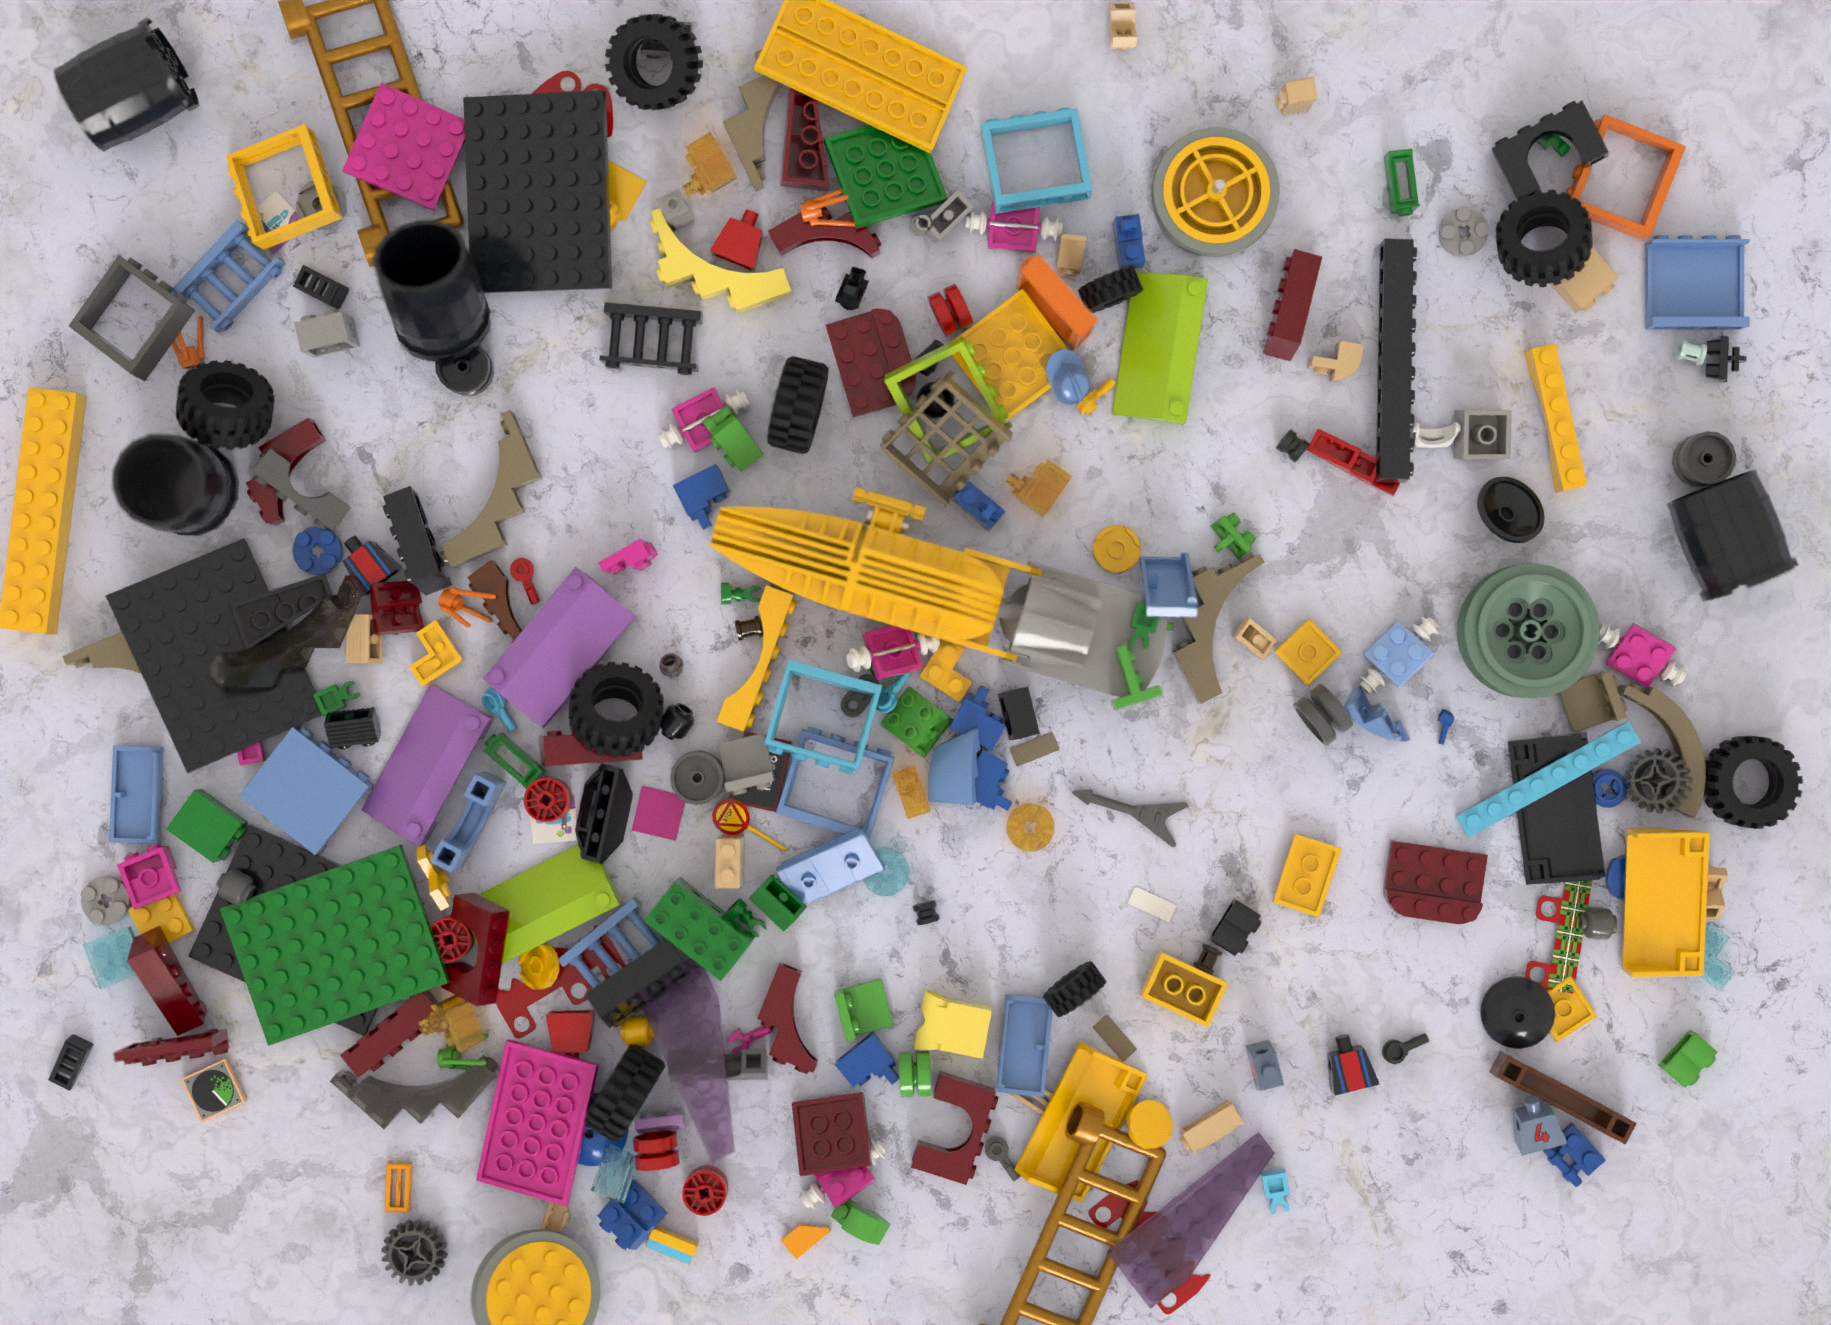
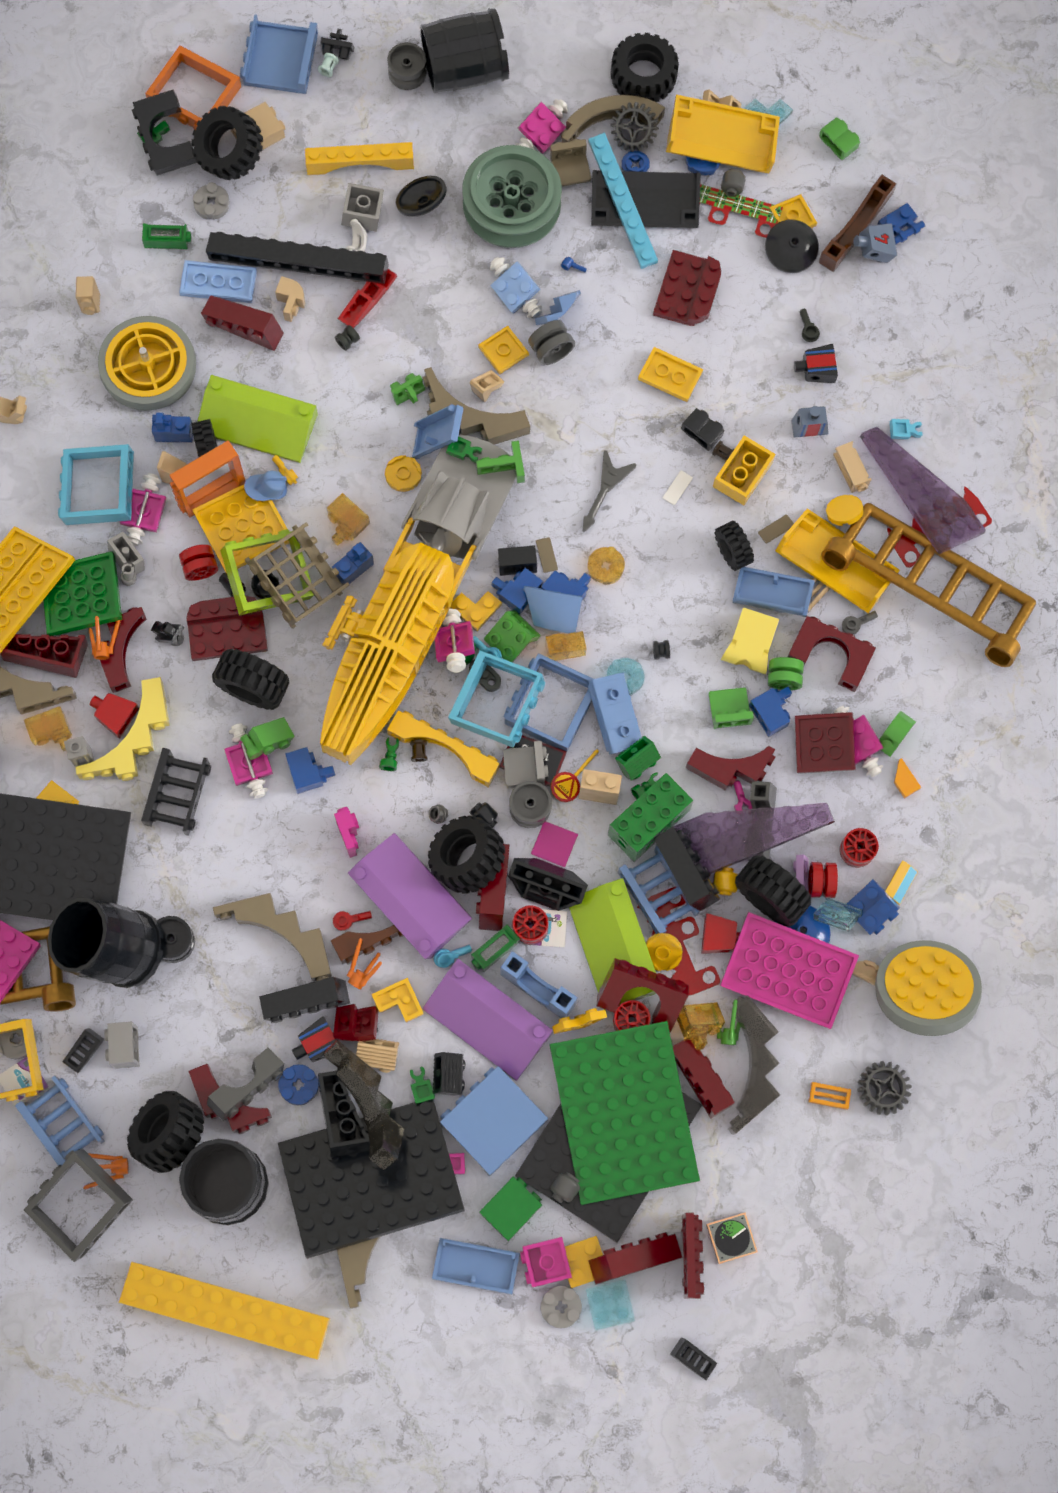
camera: 85 degrees left, 15 degrees down
(1349, 262) = (218, 280): none -> light blue tile

